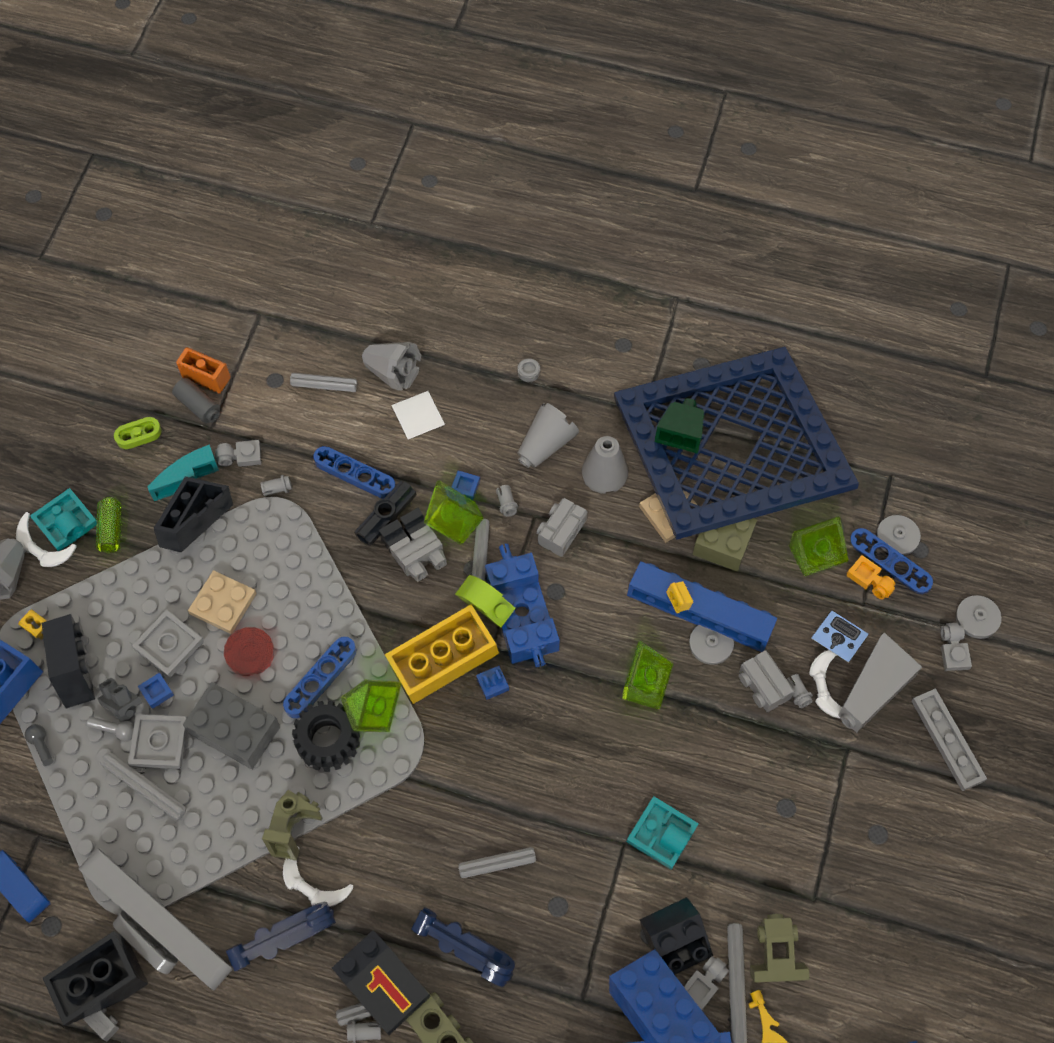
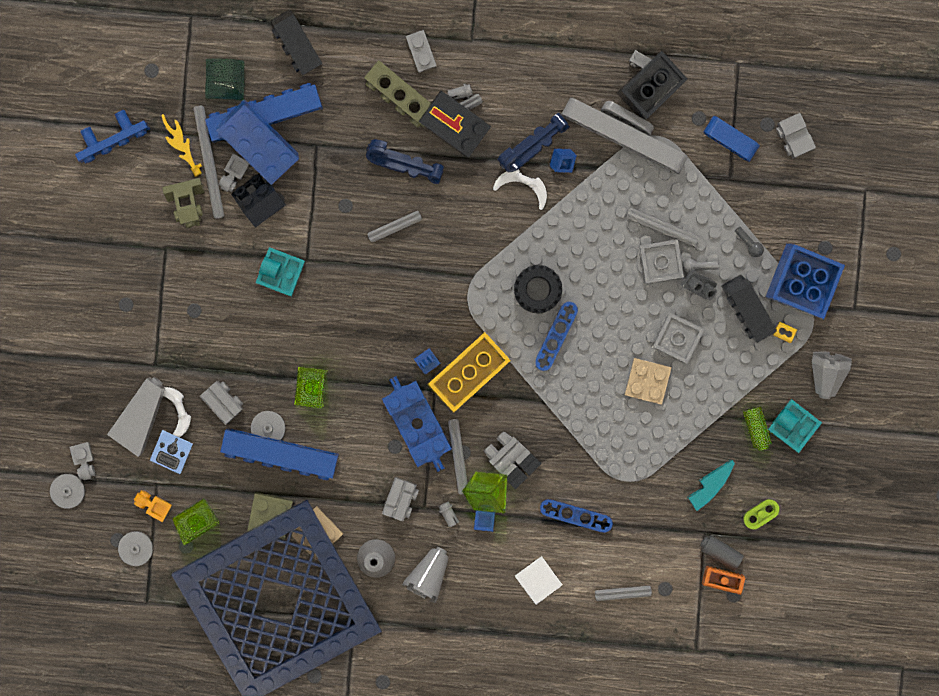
camera: 165 degrees right, 25 degrees up
(46, 558) = (797, 391): white piece -> none
(155, 690) = (675, 299): blue plate -> none
(191, 512) = (692, 448): black wedge -> none
(231, 725) = (610, 283): dark grey brick -> none
(246, 453) = (668, 515): light grey plate -> none
(248, 905) = (563, 160): none -> blue slope
(249, 651) = (615, 345): clear red tile -> none
(276, 485) = (635, 490): light grey pin -> none
(278, 836) = (551, 208): olive tile -> none
(372, 705) = (509, 314): clear neon green slope -> none
(393, 363) = (569, 619): light grey cone -> none
(395, 503) = (535, 494): black piece -> none
(485, 600) = (445, 420): lime brick -> none
(528, 370) = (456, 640): light grey tile -> none
(679, 596) = (296, 451): yellow piece -> none
(681, 426) = (318, 601): dark green torso -> none
(801, 695) = (196, 400): light grey pin -> none
(889, 563) = (137, 525): blue beam -> none
(949, 740) = (81, 385): light grey plate -> none

